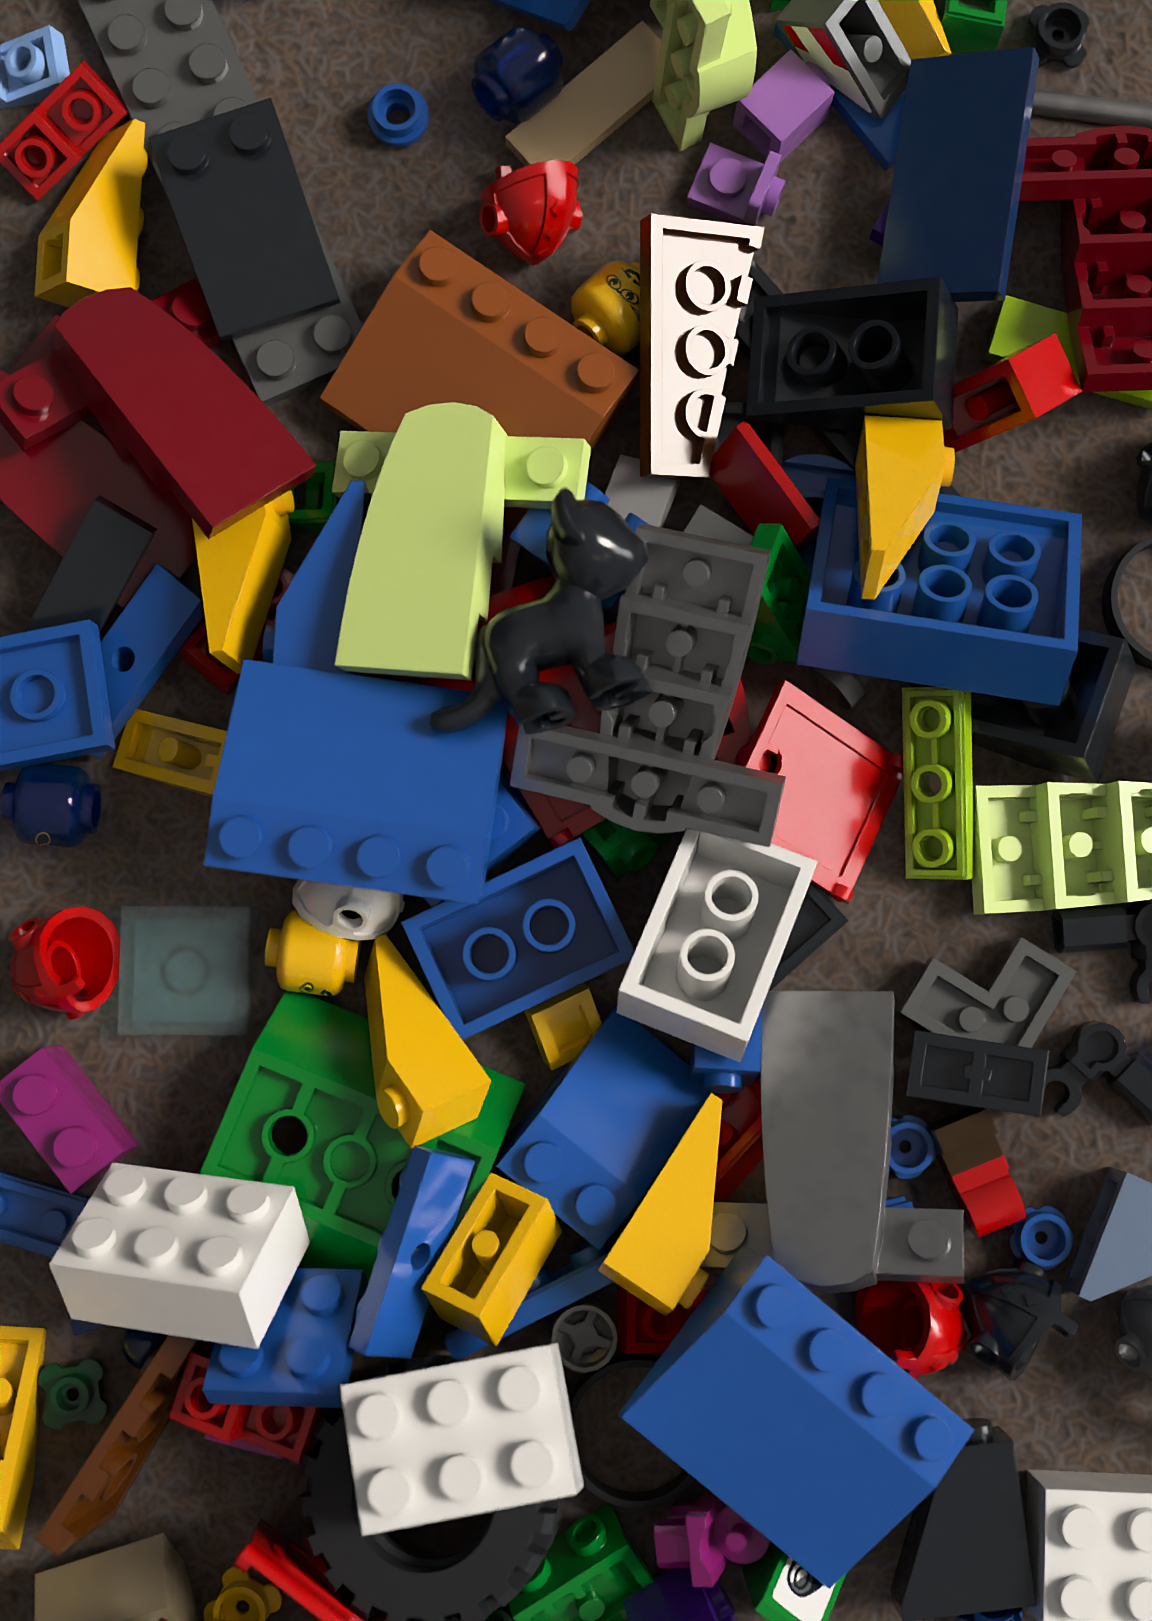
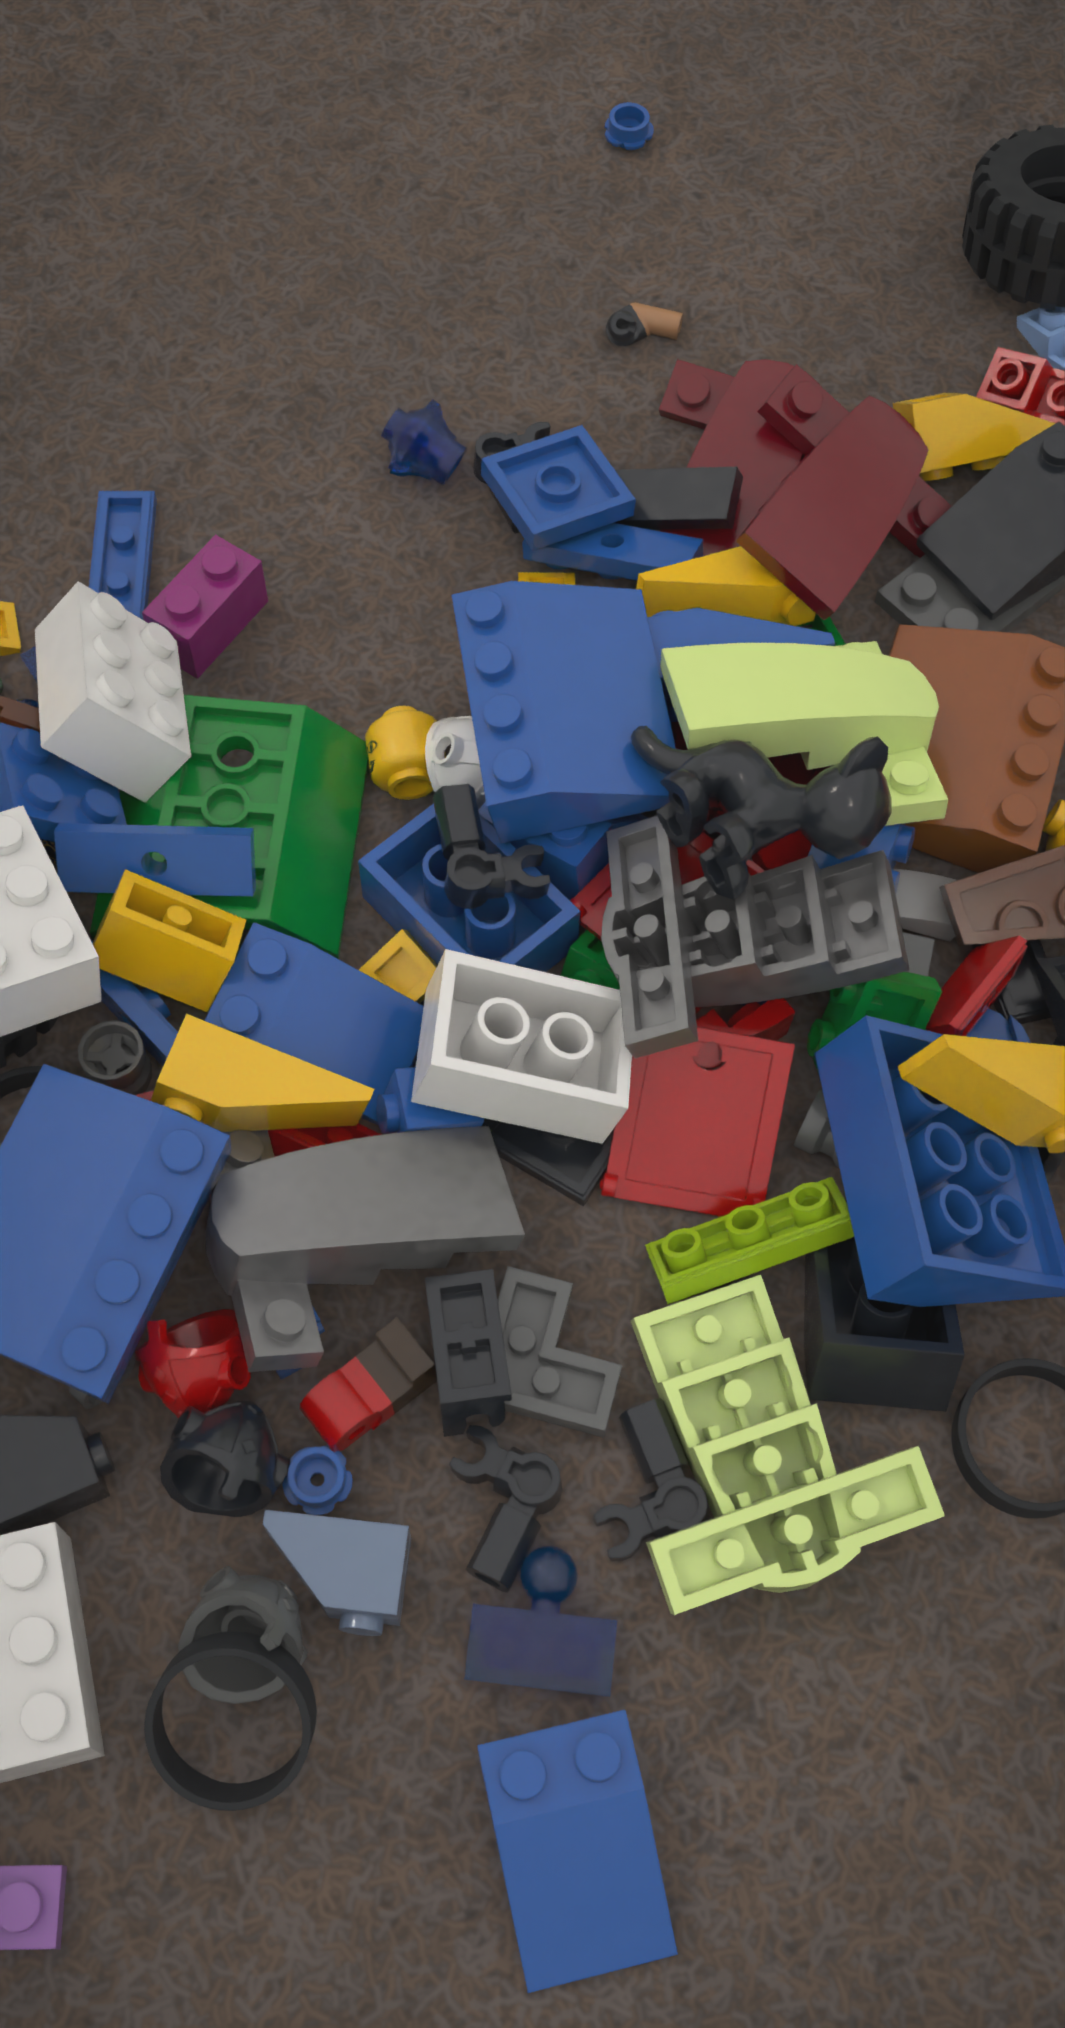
camera: 75 degrees right, 20 degrees down
(52, 805) = (470, 531): clear blue head -> none
(66, 960) = (342, 574): red helmet -> none
(185, 970) = (360, 666): clear light blue tile -> none
(420, 1063) = (332, 830): yellow slope -> none
(519, 934) = (470, 871): none -> black bar
(921, 1151) = (368, 1300): blue plate -> none

